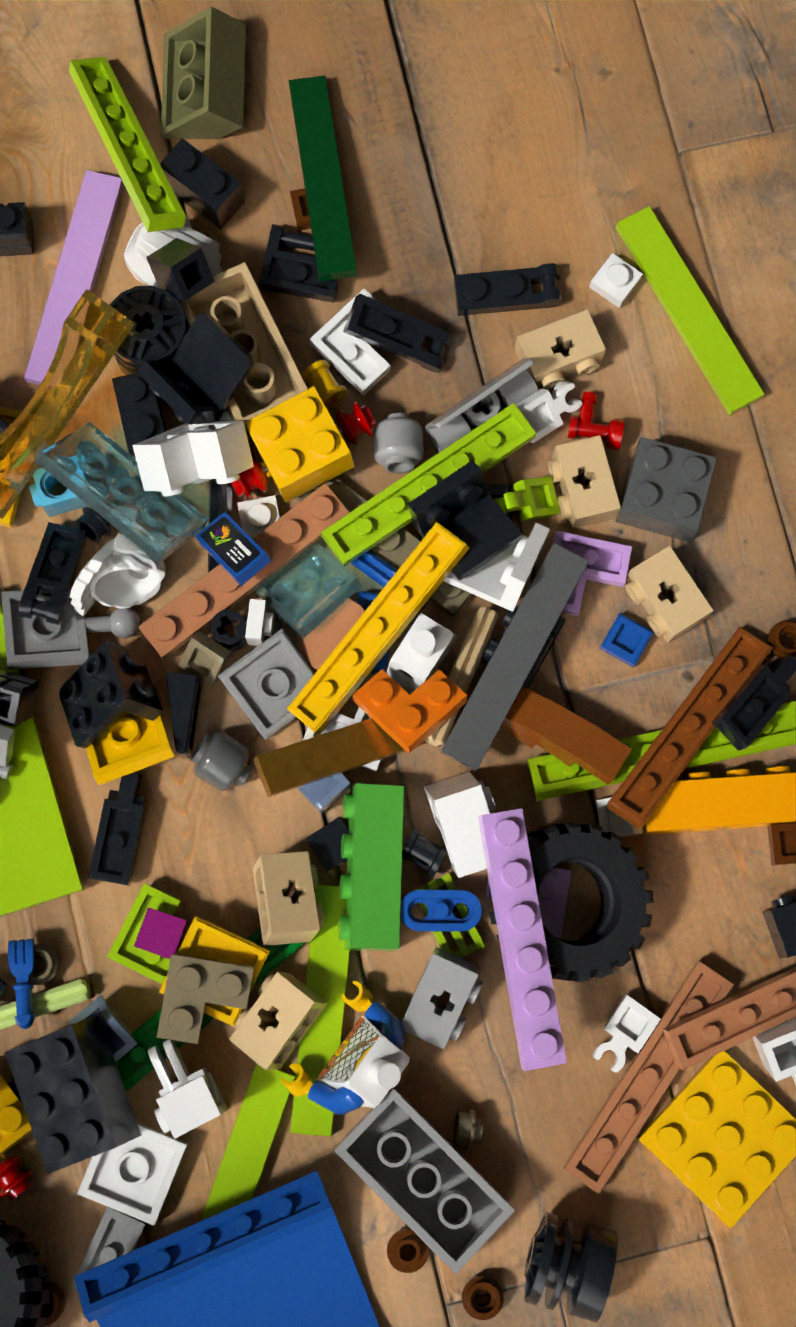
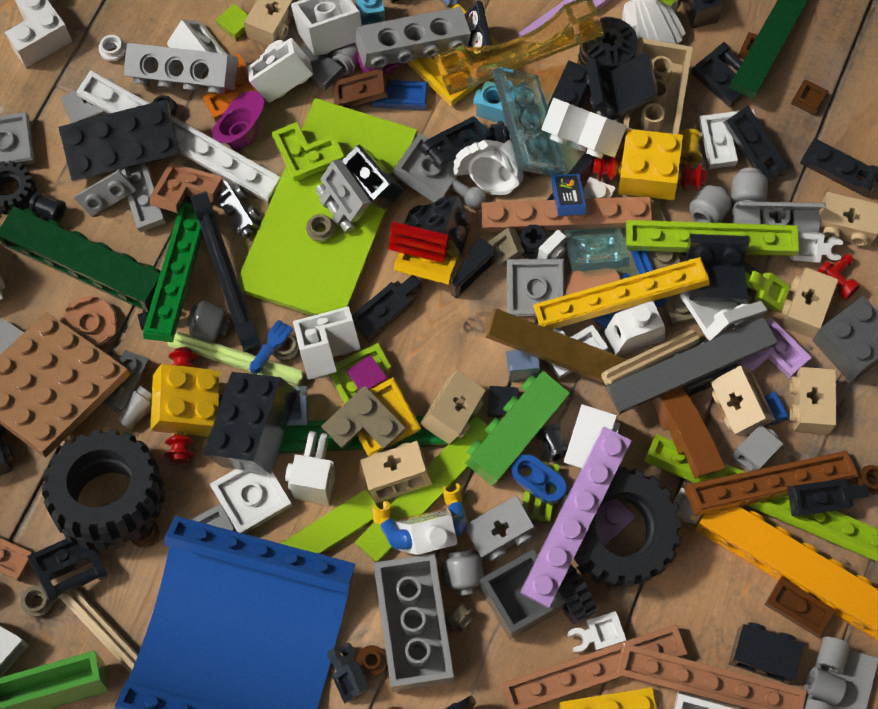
camera: 40 degrees right, 10 degrees down
(76, 930) = (324, 337): none -> white brick
(103, 734) = (417, 245): none -> red tile
(180, 269) = (652, 25): black brick -> none
(221, 761) = (473, 308): dark grey head -> none
(395, 1289) = (348, 675): none -> black plate
(410, 716) = (602, 353): orange plate -> none
(414, 226) = (809, 97): none -> reddish brown tile
(427, 391) = (749, 186): none -> light grey head
(434, 1076) = (463, 571): none -> light grey head
(497, 1063) = (511, 608): none -> dark grey piece
(580, 1017) = (577, 597): none -> black tyre
(586, 635) = (754, 407): none -> tan brick
(648, 696) = (757, 448): none -> light grey brick

